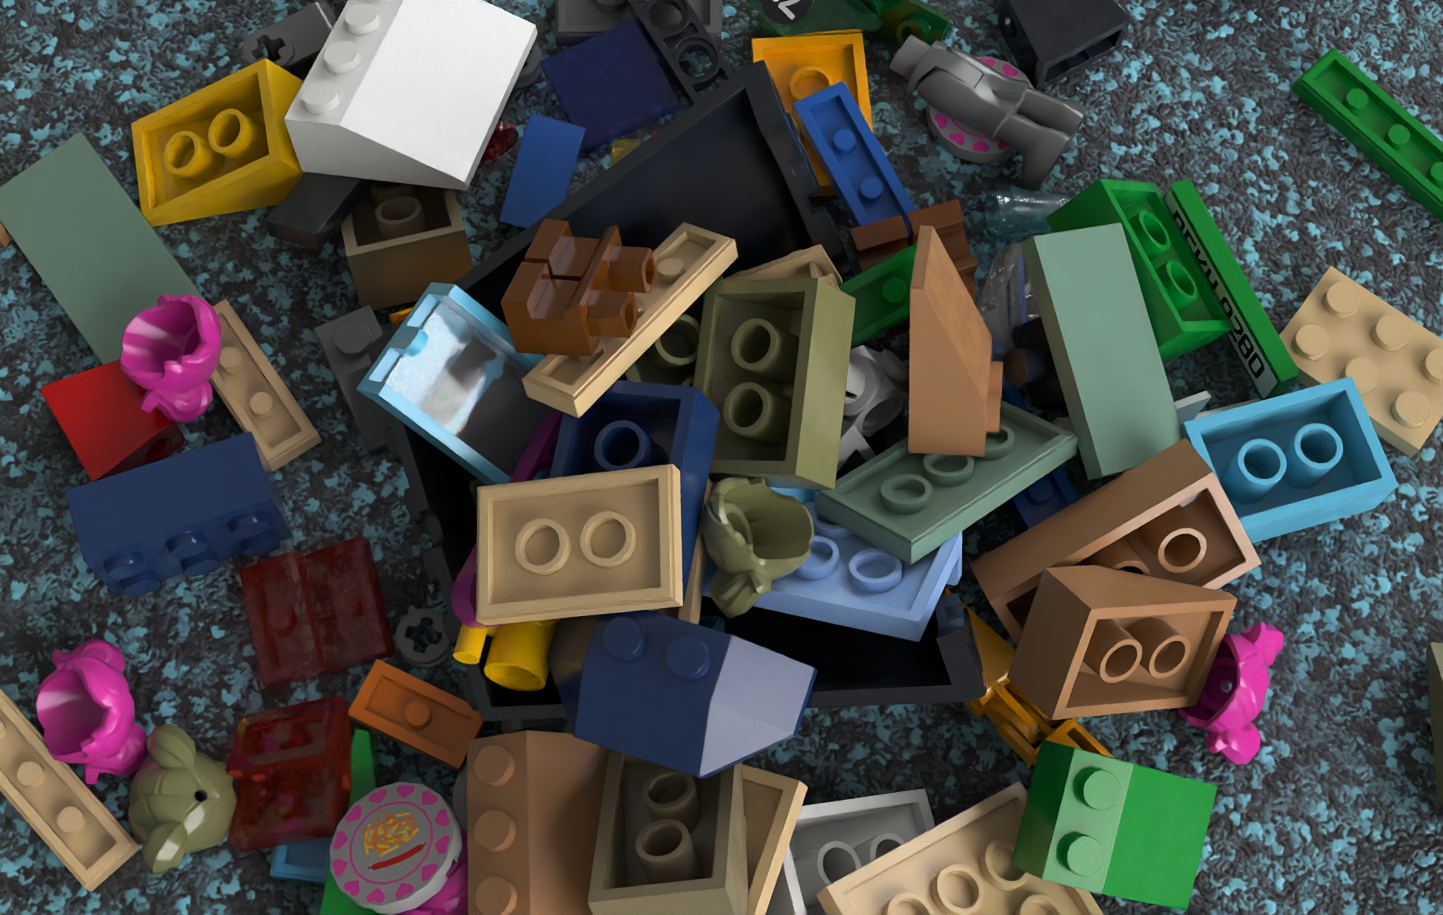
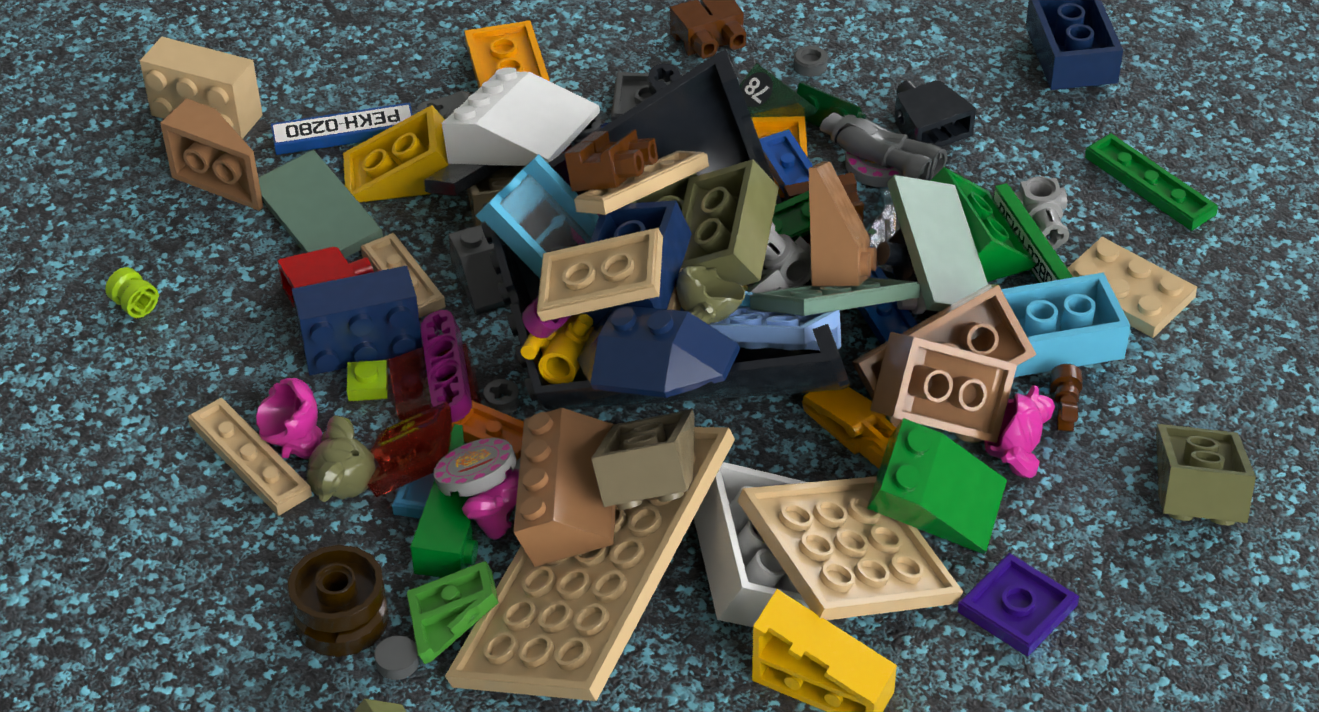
camera: 10 degrees right, 25 degrees down
(124, 72) = (336, 128): none -> tile
(173, 355) = (363, 240): dark pink hair -> none
(209, 609) = (367, 380): none -> lime plate
(323, 594) = (446, 364): none -> magenta beam
(1244, 222) = (1045, 204): none -> light grey connector
(1296, 622) = (1066, 384): none -> reddish brown piece

